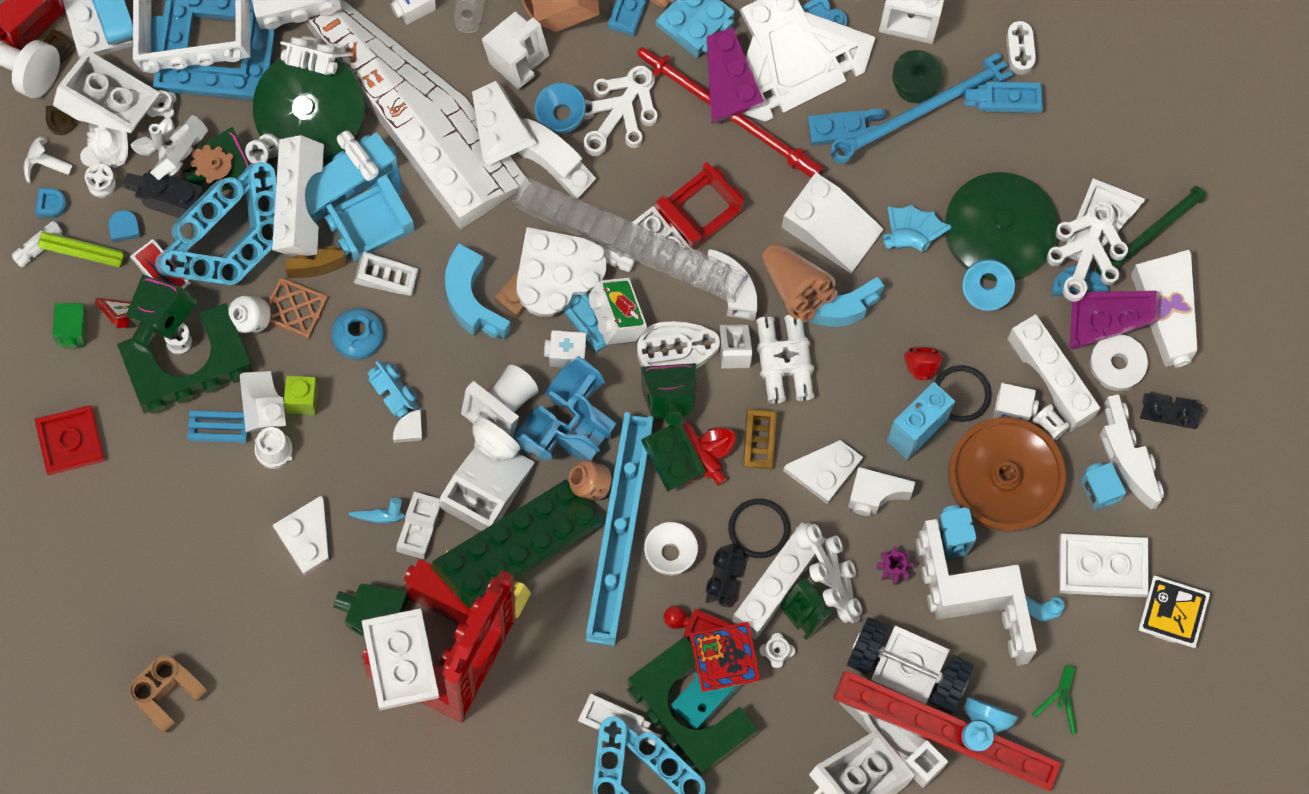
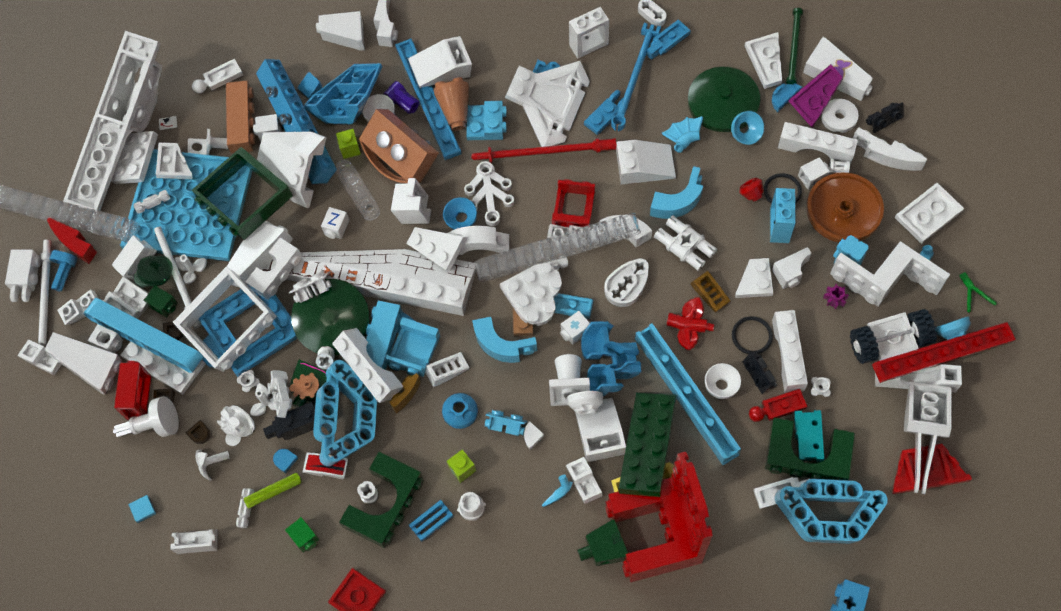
camera: 30 degrees left, 5 degrees down
(50, 203) = (233, 481): dark azure tile -> none
(97, 174) = (247, 443): white wheel -> none
(104, 94) = (214, 399): white slope -> none
(115, 310) = (324, 504): piece -> none
(158, 309) = (346, 484): dark green torso -> none
(249, 314) = (396, 446): white head -> none
(261, 402) = (444, 487): white arch -> none
(301, 290) = (417, 438): nougat window -> none
(305, 535) = (530, 537): white wing -> none
(357, 155) = (379, 319): white axle -> none
(400, 659) = (651, 554): white plate -> none
(590, 480) = (650, 381): nougat head -> none
(617, 311) = (583, 287): brick -> none
(669, 391) = (647, 304): dark green torso -> none
(673, 456) = (680, 334): dark green plate -> none
(724, 657) = (804, 410): tile -> none
(730, 77) = (530, 131): magenta wing -> none
(735, 346) = (656, 256): white slope -> none
(798, 282) = (660, 197): nougat cone -> none
(805, 608) = (818, 352): dark green plate -> none
(830, 572) = (813, 322): white plant -> none
(916, 88) = (617, 62): clear green piece -> none
(977, 736) = (962, 341): medium azure tile -> none
(1090, 247) = (777, 72): white plant -> none
(1102, 485) = (891, 176): medium azure brick -> none
(1174, 612) = (983, 206): piece -> none

